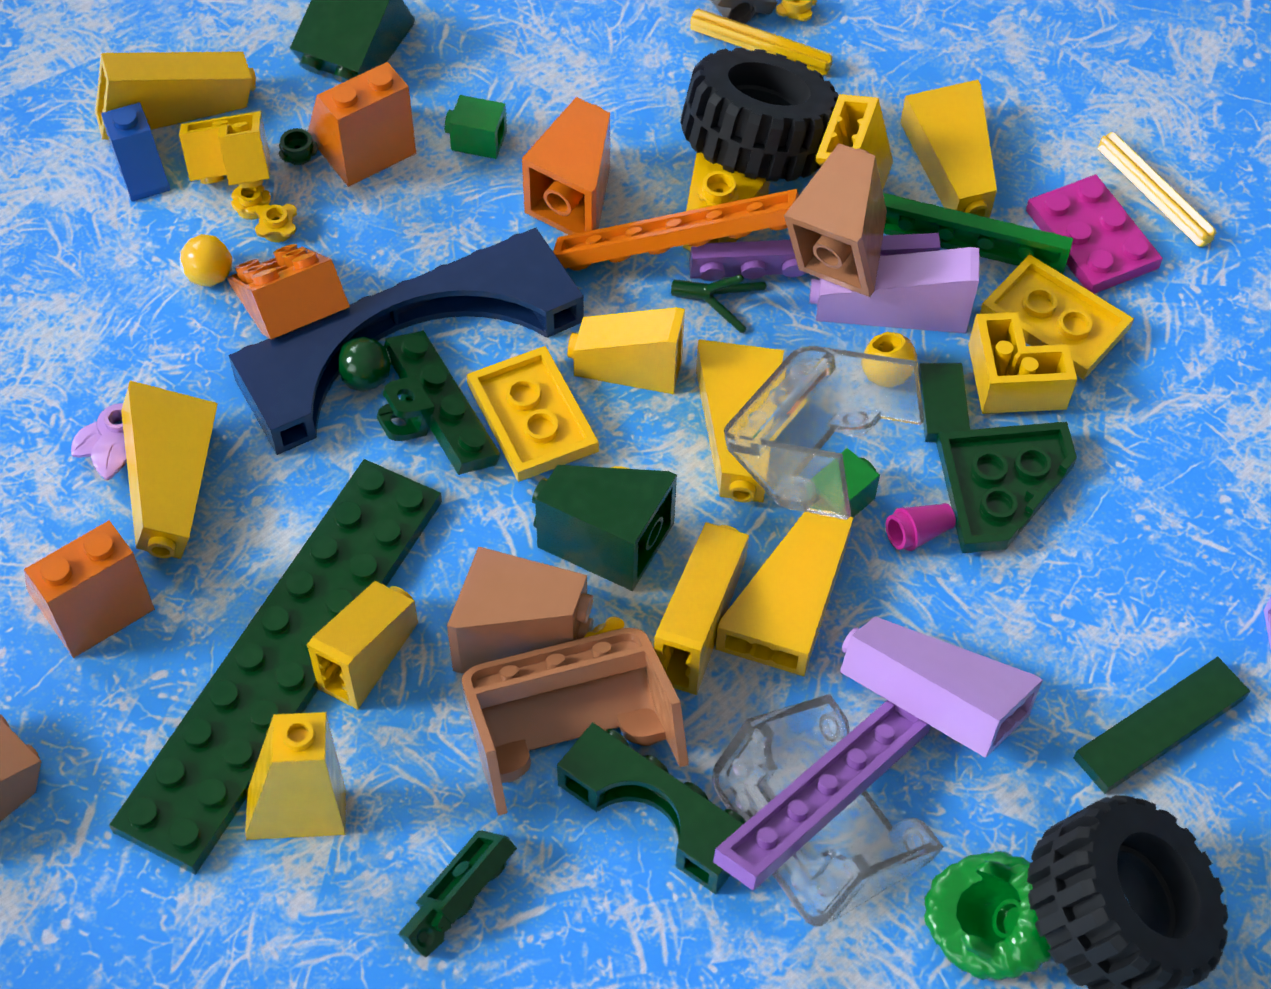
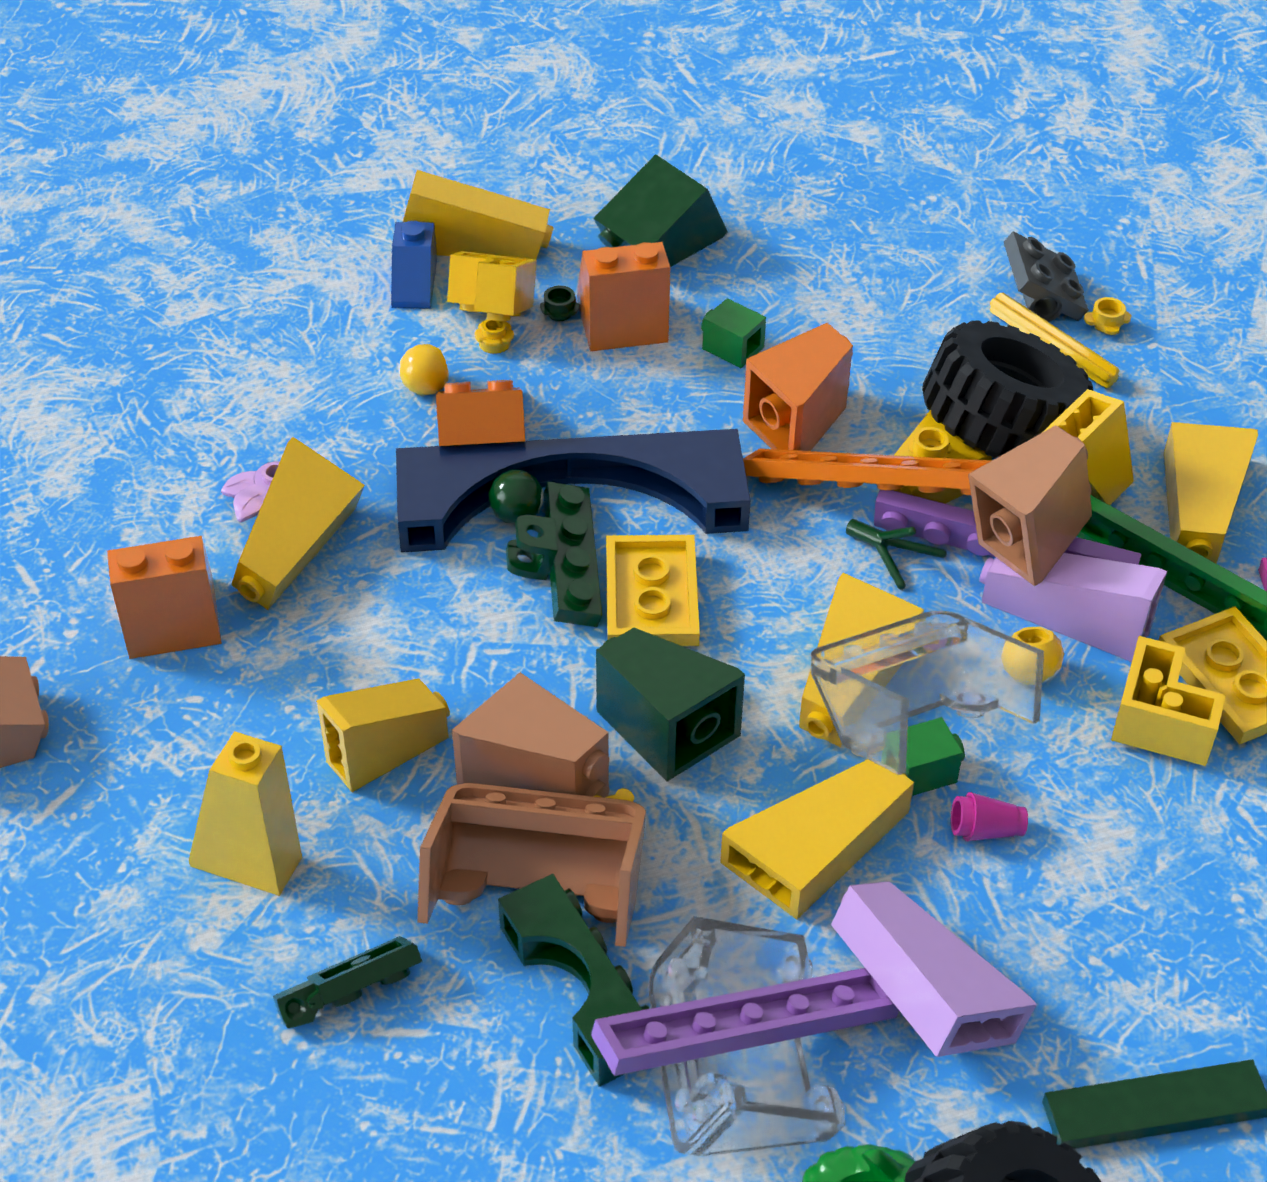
camera: 25 degrees right, 10 degrees down
(212, 754) = (440, 643): dark green plate -> none
(276, 222) = (506, 359): yellow plate -> none
(631, 348) = (776, 563): yellow slope -> none
(698, 603) = (688, 822): yellow slope -> none
(943, 399) = (1074, 716): dark green tile -> none
(1002, 478) = (1100, 805): dark green plate -> none

